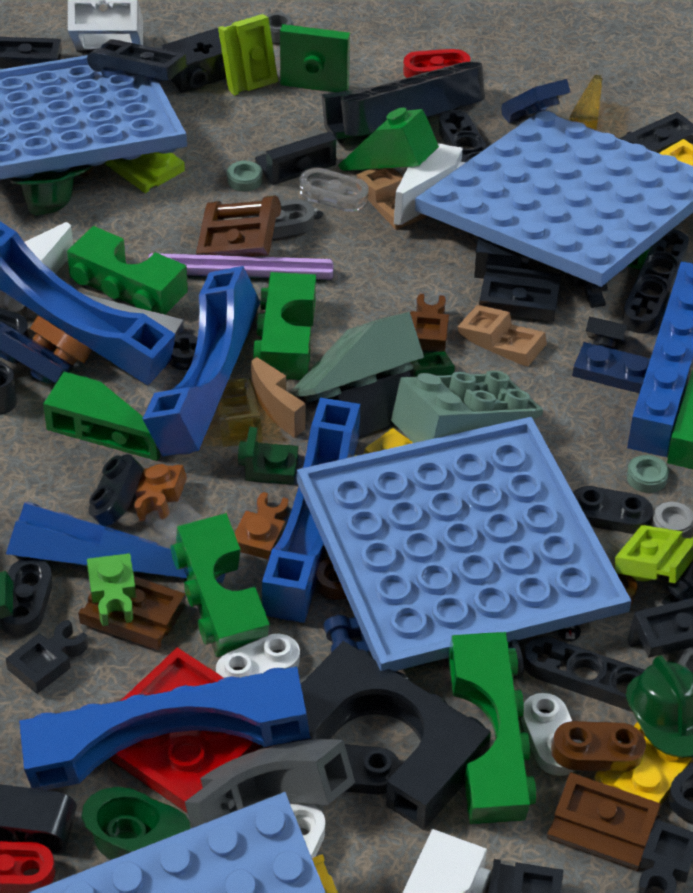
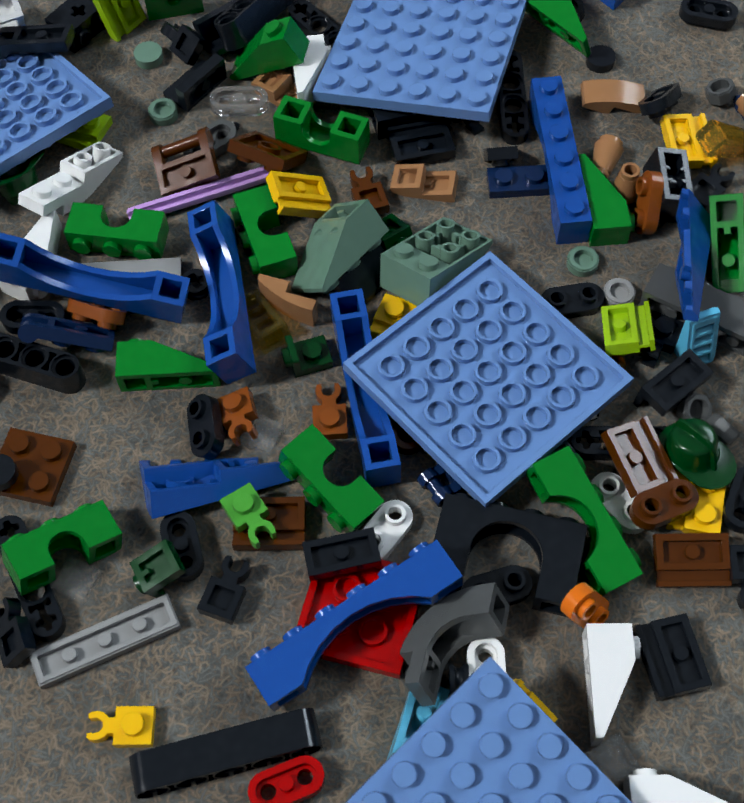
camera: 20 degrees left, 15 degrees up
(112, 209) = (75, 182): none -> white slope
(129, 820) = (371, 711): dark green piece -> none
(189, 657) = (341, 554): none -> black plate
(259, 116) = (148, 55): none -> sand green tile
(306, 114) = (185, 42): none -> black plate
(335, 245) = (268, 151): none -> reddish brown plate
(345, 295) = (299, 194): none -> yellow plate
(430, 259) = (300, 126): none -> green arch
(440, 807) = (585, 605): none -> orange plate
(594, 682) = (638, 456): none -> plate

